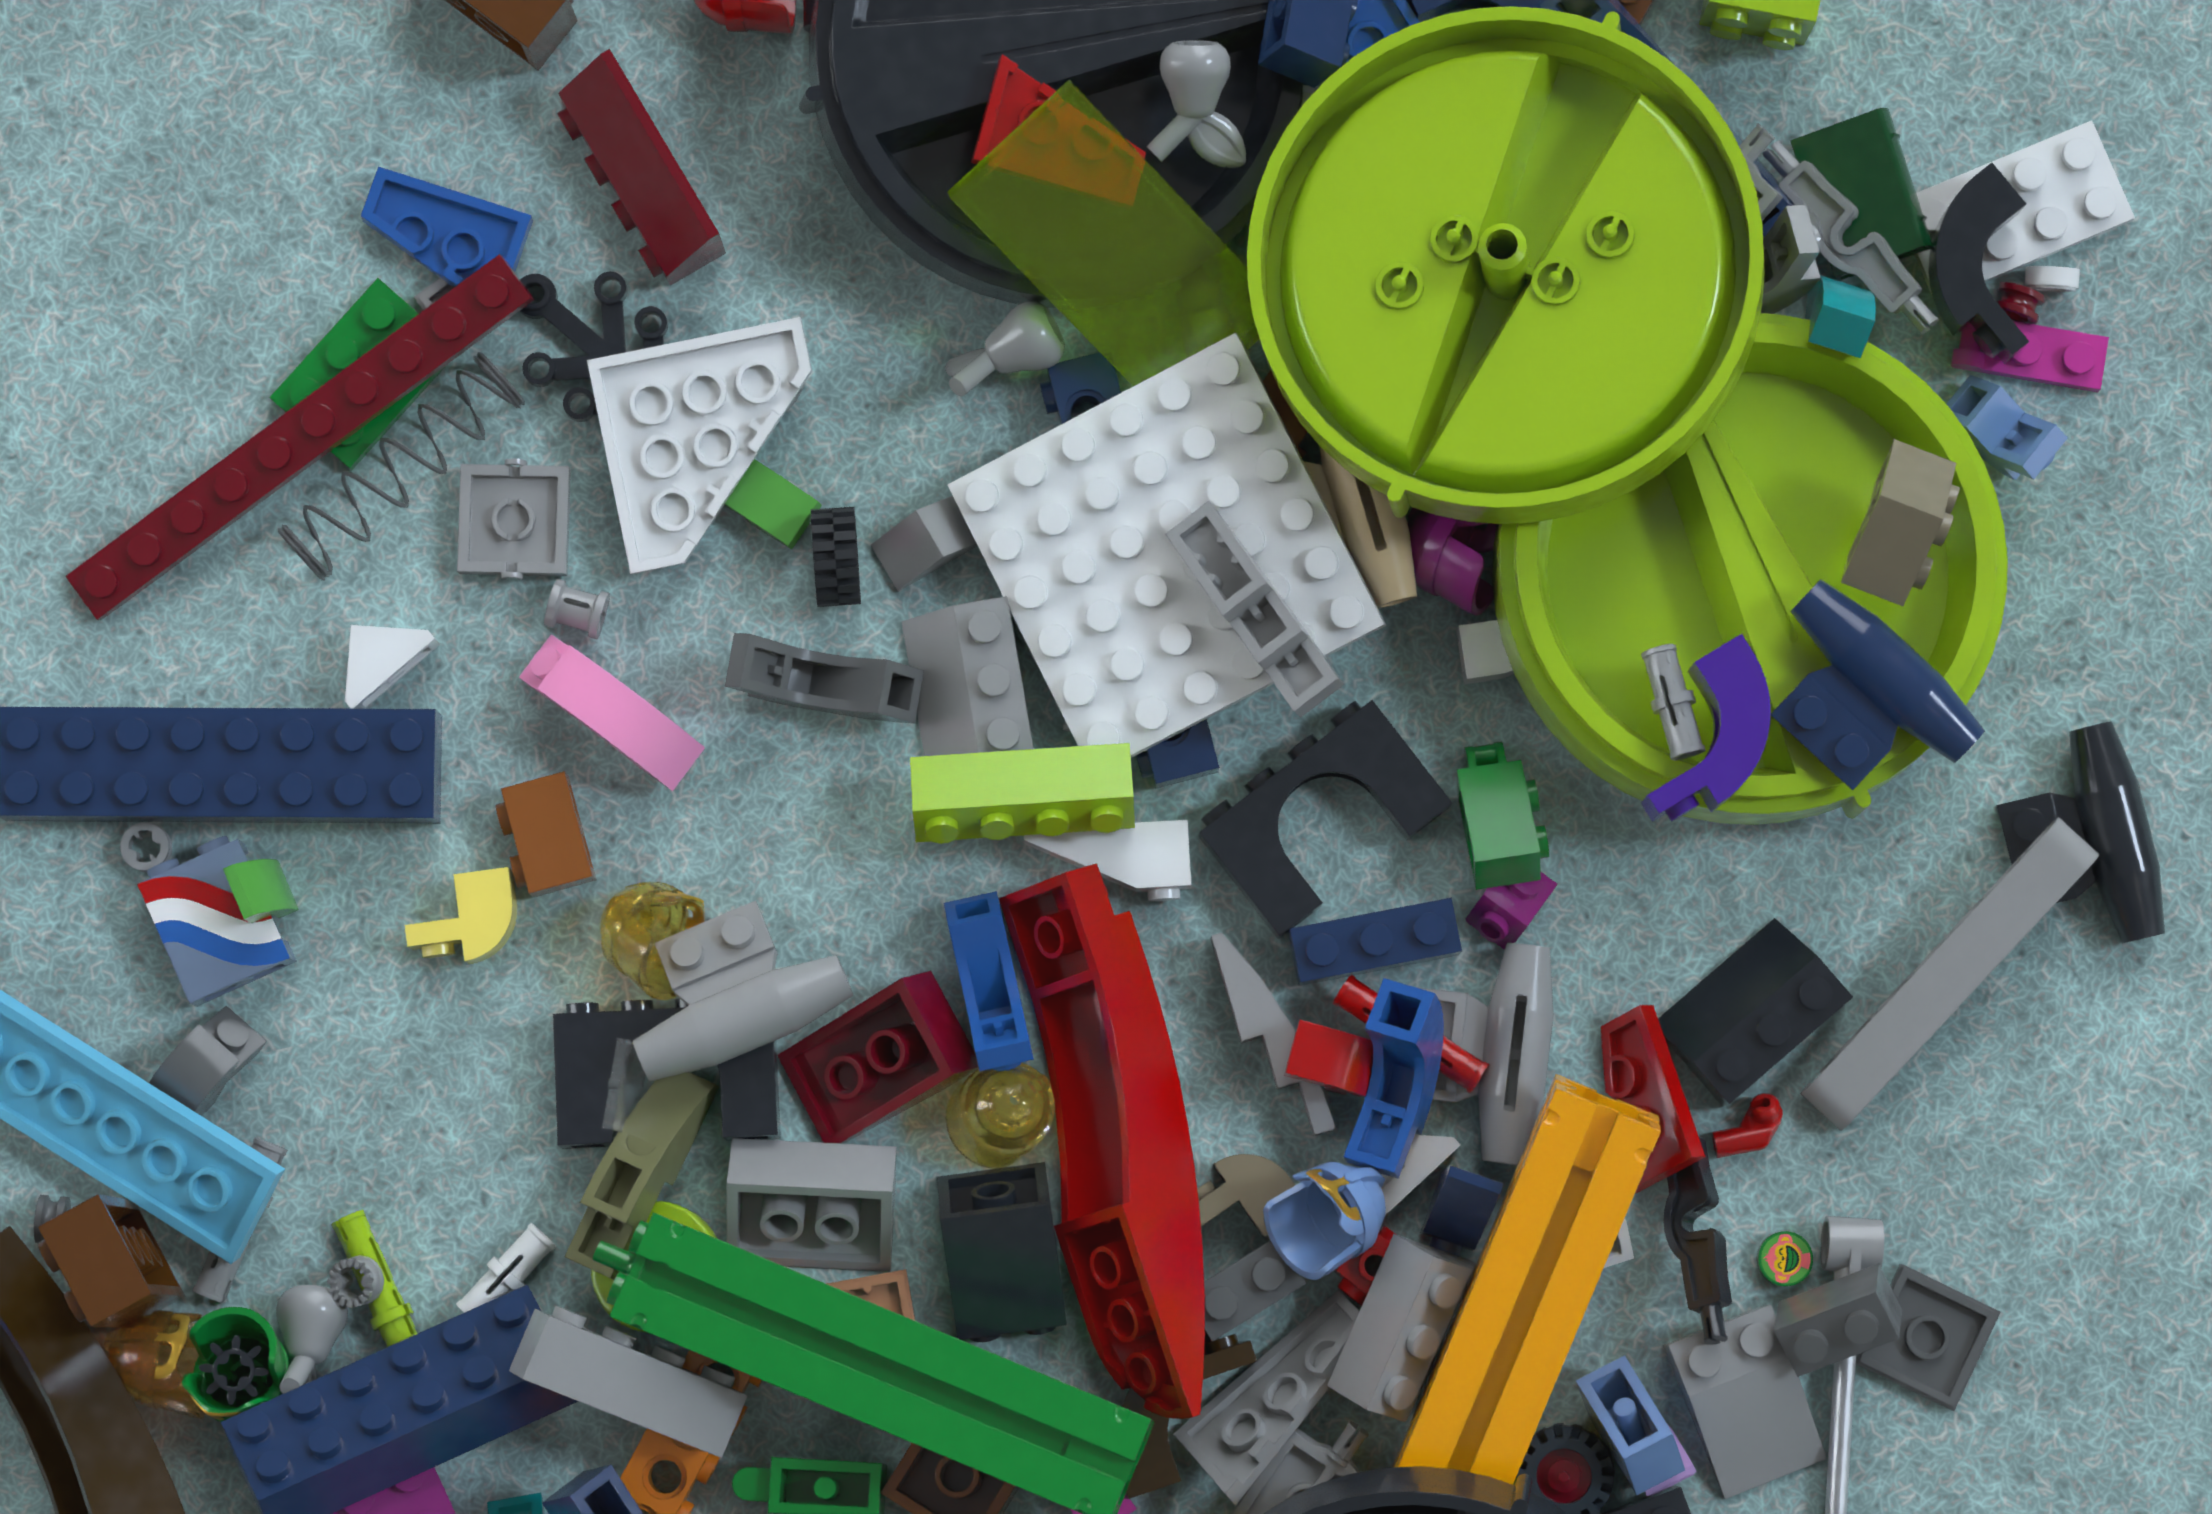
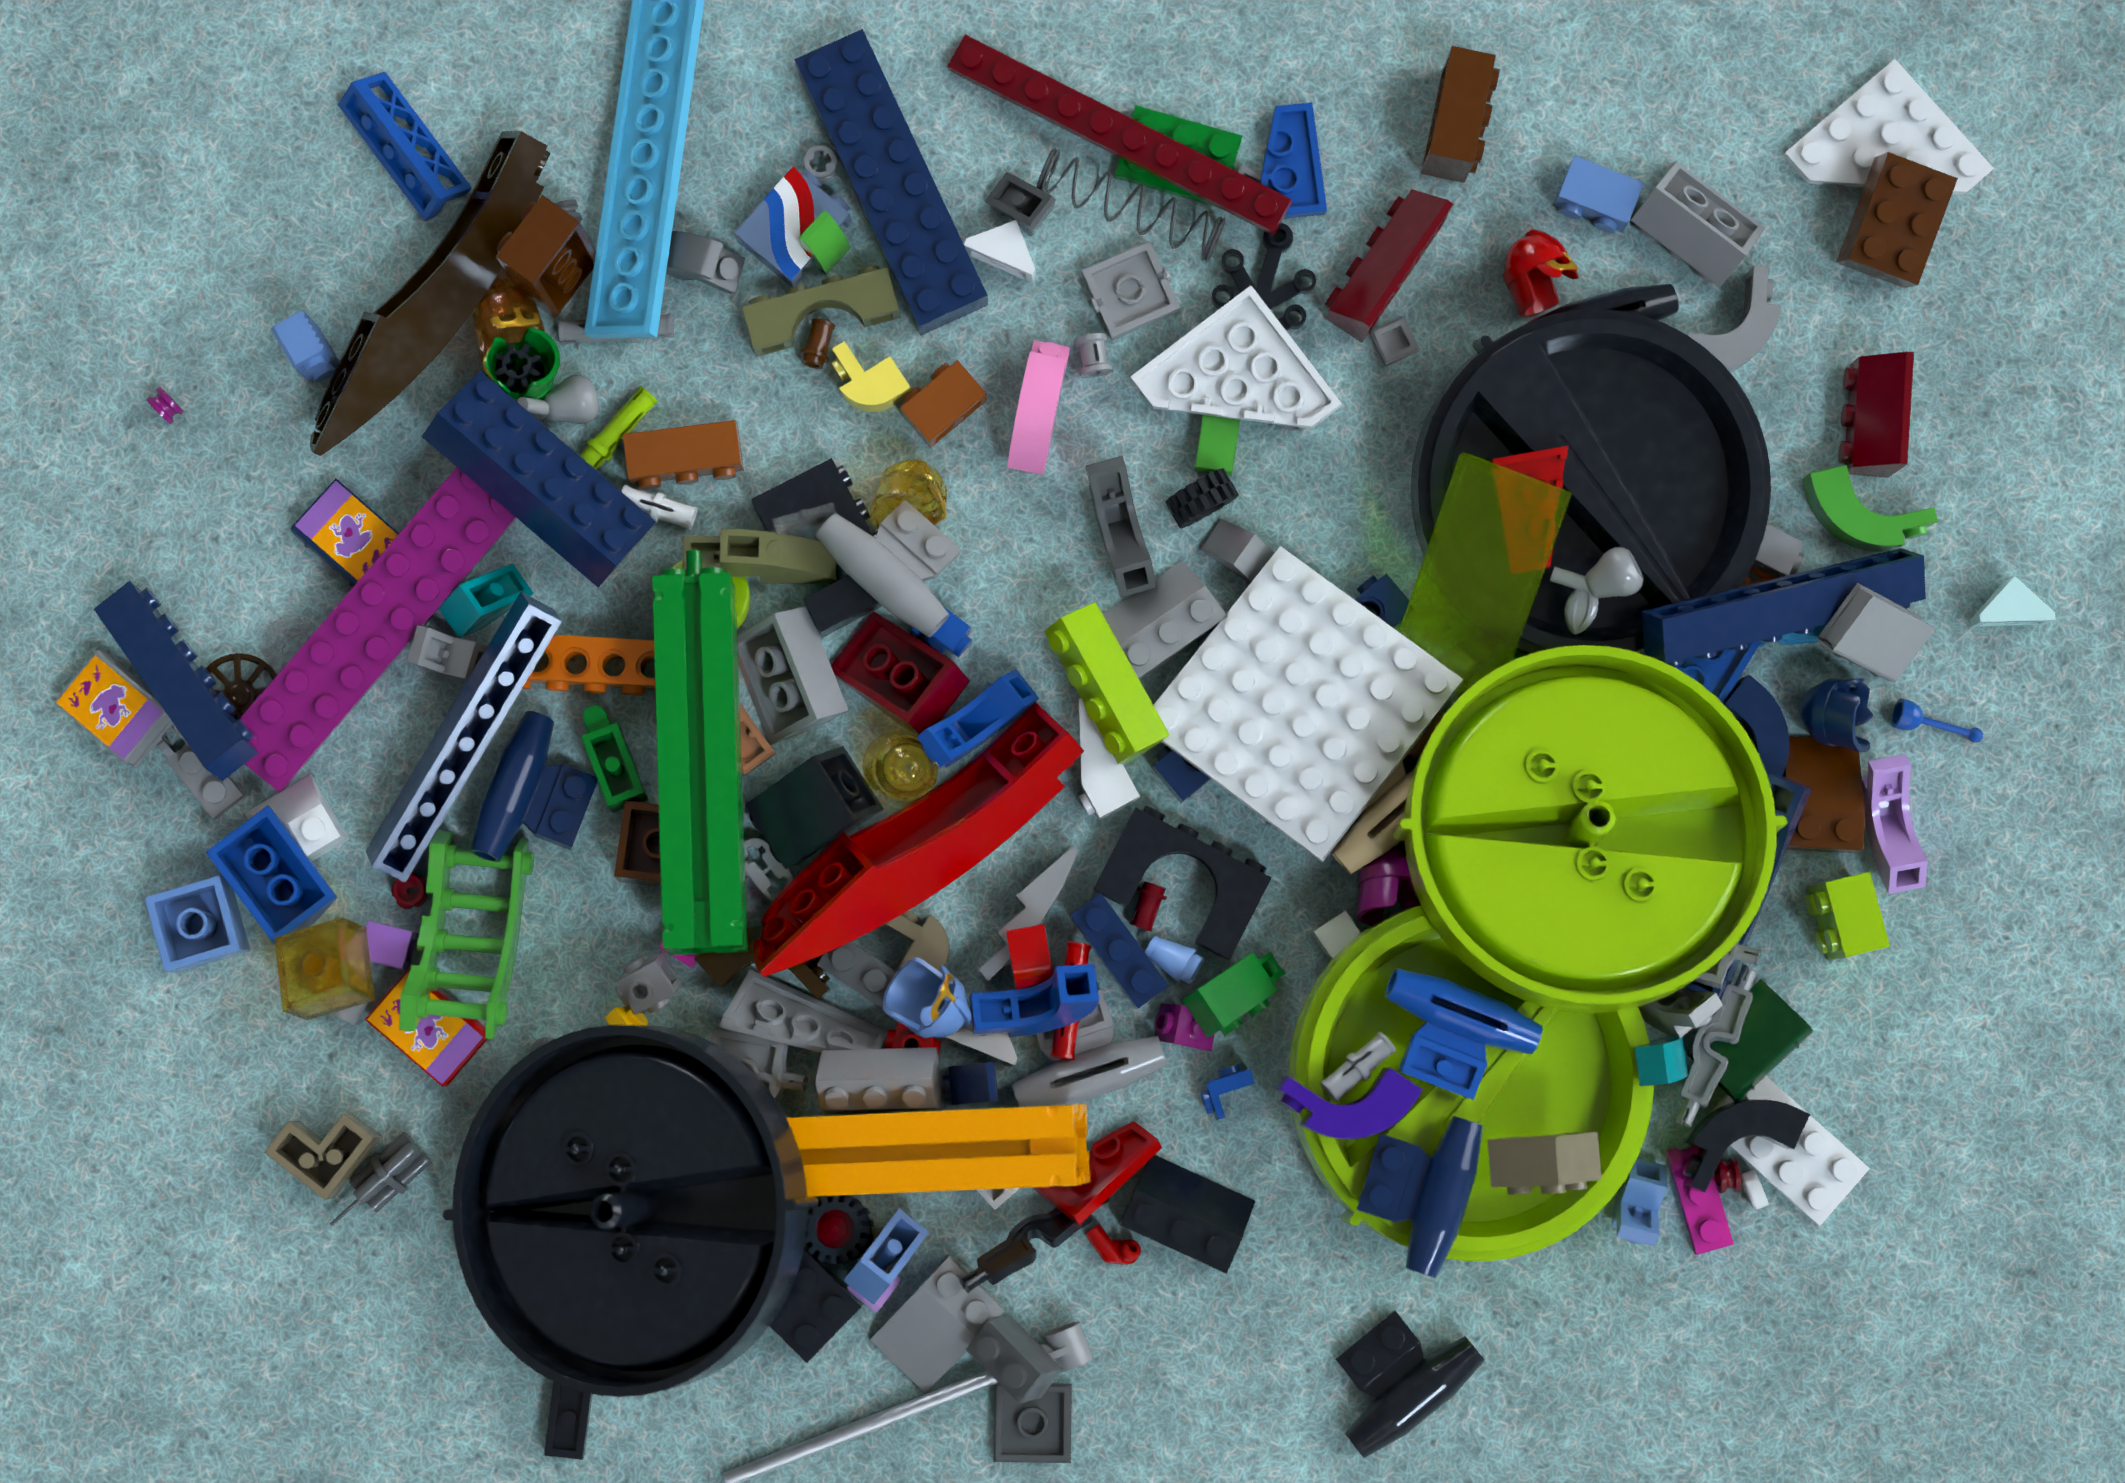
camera: 60 degrees right, 0 degrees up
(328, 608) = (1021, 202): none -> dark grey slope
(341, 1281) = (606, 407): light grey bush -> none
(357, 868) = (775, 320): none -> olive arch
(388, 963) = (817, 344): none -> reddish brown pin
(452, 1207) = (683, 454): none -> dark orange brick
(628, 1382) = (619, 609): light grey brick -> none
(744, 210) = (1394, 341): none -> light grey tile
(863, 969) = (950, 636): none -> blue brick
(1022, 342) = (1394, 550): light grey piece -> none
(1057, 1365) = (757, 875): none -> light grey beam
(1254, 609) = (1291, 772): light grey slope -> none
(1332, 877) = (1147, 906): none -> dark red pin
(1417, 874) = (1175, 959): none -> light blue cone
(1606, 876) = (1230, 1079): none -> blue bracket
(1678, 549) = (1456, 1028): none -> blue plate
(1784, 1258) = (1040, 1307): tile -> none
(1950, 973) = (1272, 1330): light grey beam -> none

